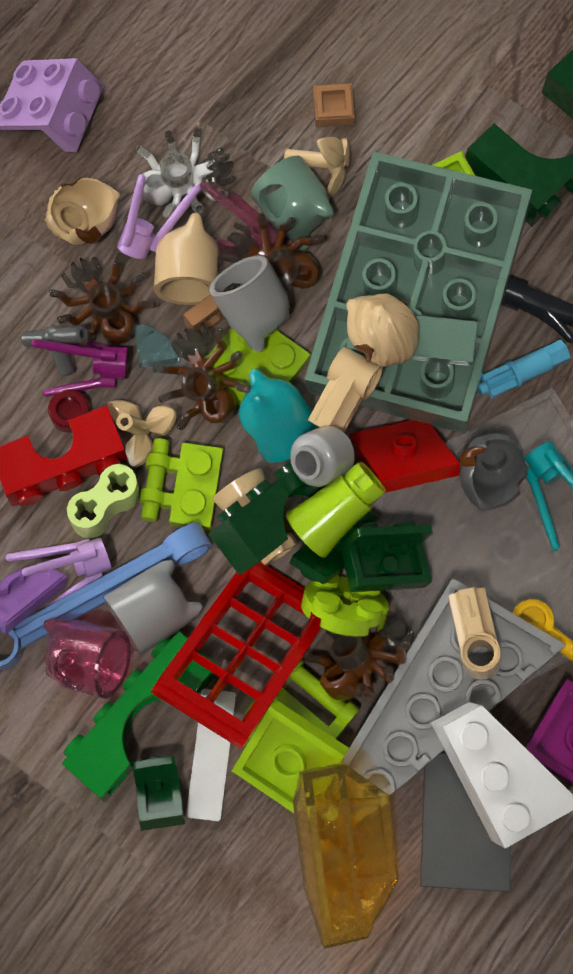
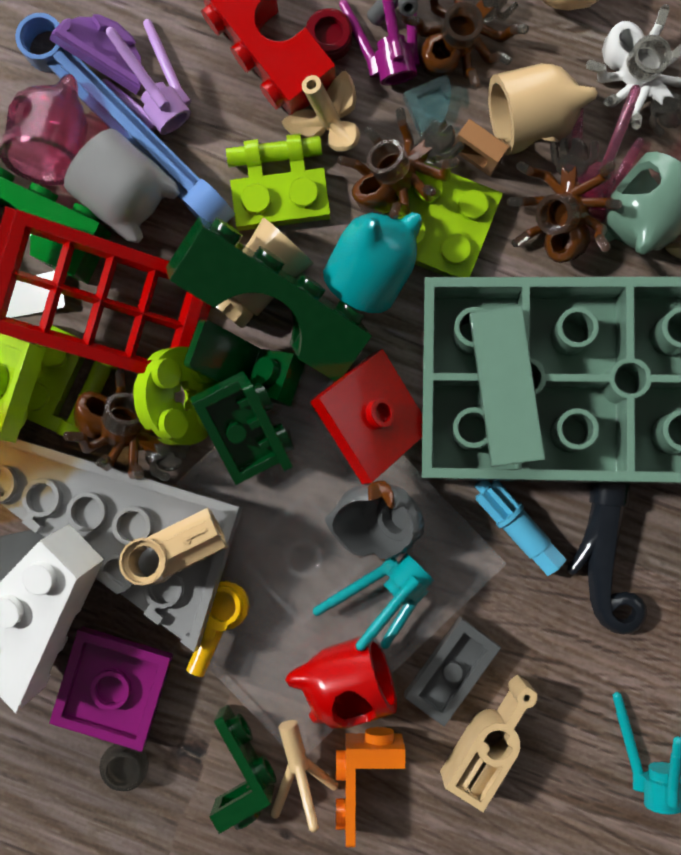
camera: 75 degrees right, 15 degrees up
(103, 501) = (230, 99): yellowish green axle -> none
(138, 234) = (557, 39): lavender plant -> none
(255, 306) = (498, 195): light grey piece -> none
(322, 456) = (324, 319): light grey head -> none
(335, 509) = (271, 352): lime plant -> none
(349, 383) = (428, 329): tan piece -> none
(382, 329) = (498, 345): tan hair -> none

